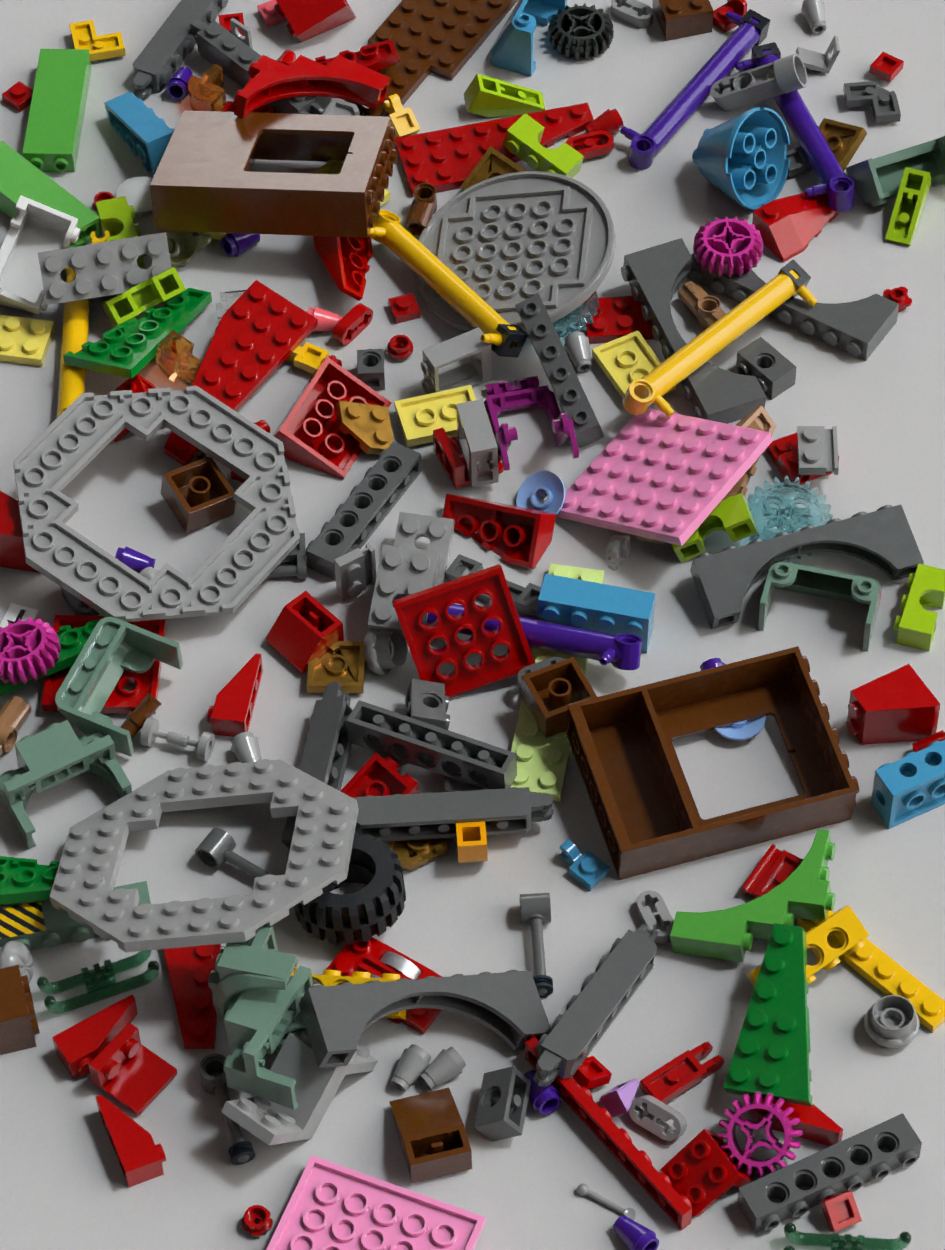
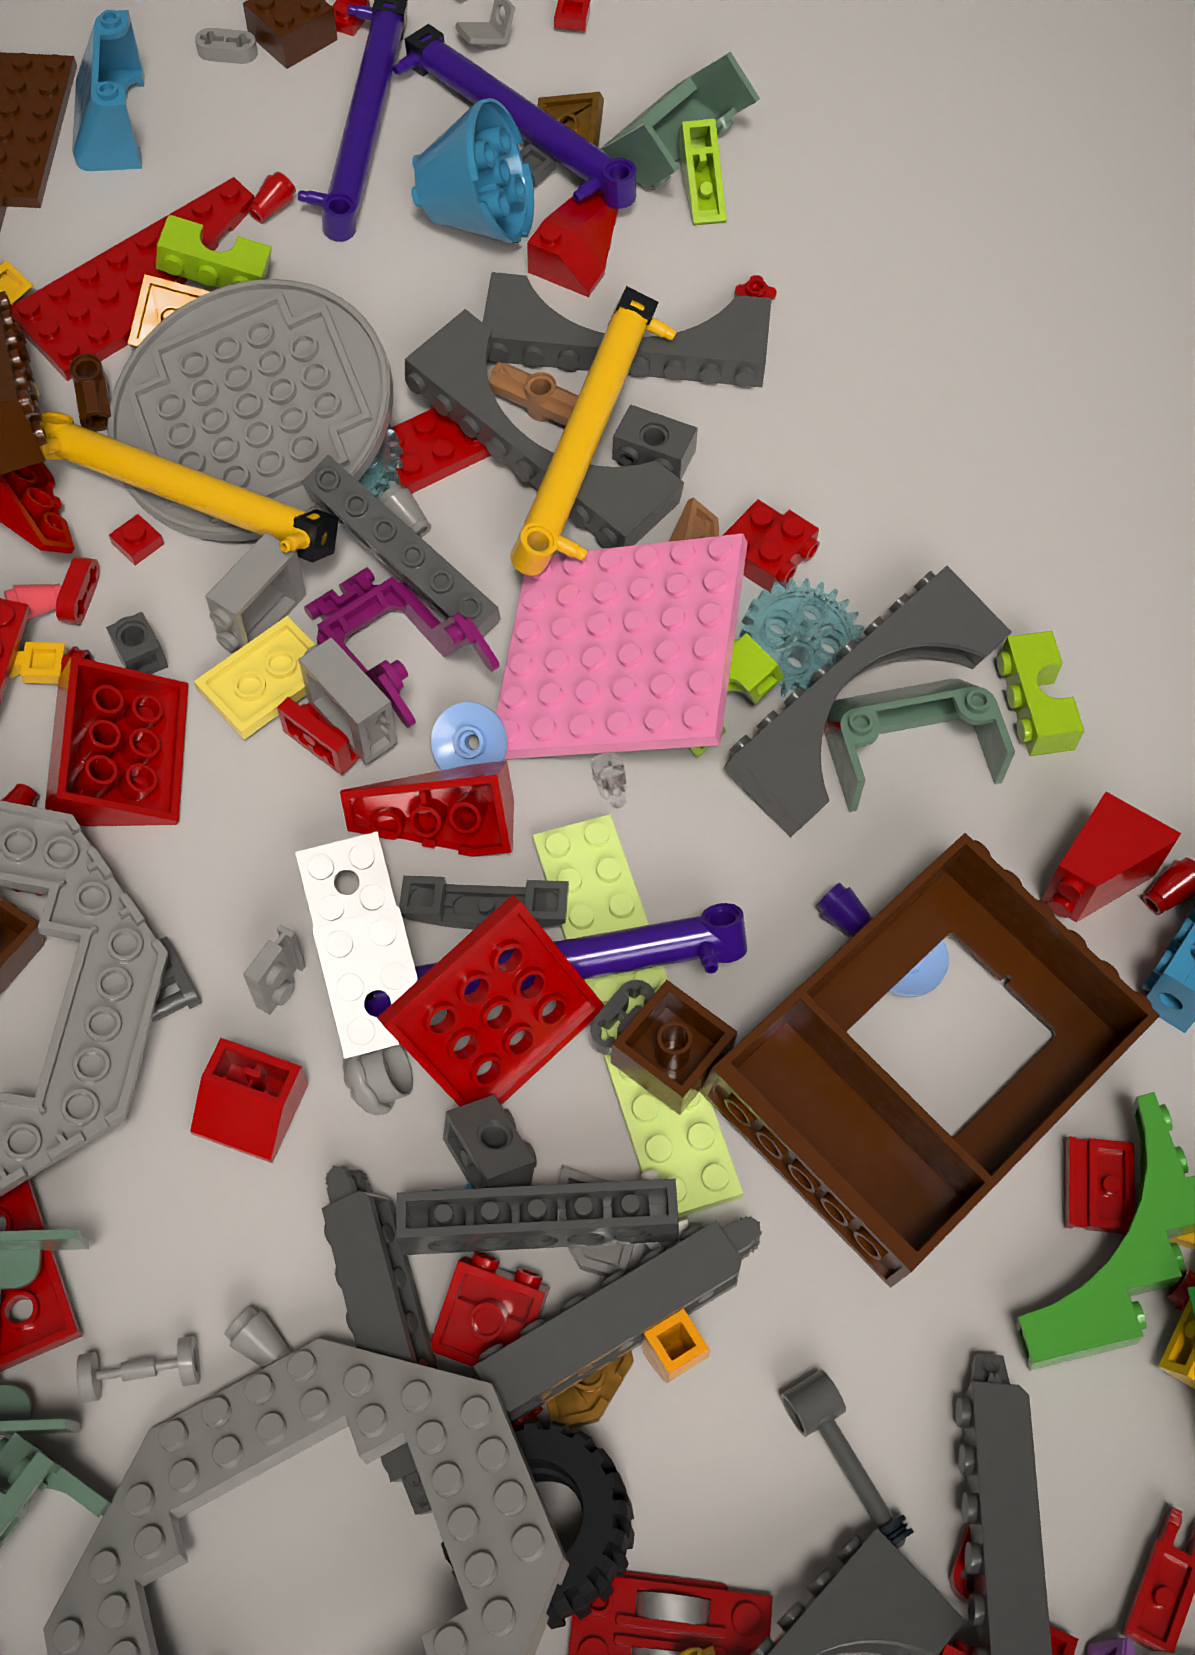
camera: 30 degrees left, 10 degrees up
(137, 718) = (59, 1368): reddish brown pin -> none
(219, 848) = (295, 1538): dark grey piece -> none
(237, 700) = (199, 1263): red slope -> none
(341, 664) = (323, 1133): pearl gold plate -> none
(364, 508) = (228, 960): dark grey brick -> none
(366, 424) = (175, 732): pearl gold plate -> none
(400, 347) = (157, 590): red plate -> none
(499, 98) = (118, 209): lime slope -> none
(580, 31) = (177, 89): pearl dark grey gear -> none
(584, 868) = (841, 1293): dark azure plate -> none
(592, 143) = (270, 226): red plate -> none
(597, 607) = (647, 882): dark azure wedge -> none
(626, 360) = (480, 506): light yellow plate -> none
(660, 915) = (984, 1318): light grey beam -> none
(728, 246) = (526, 299): dark pink gear -> none
(760, 83) = (443, 79): light grey beam -> none
(817, 450) = (794, 531): light grey plate -> none
(883, 102) = (568, 54): dark grey plate -> none

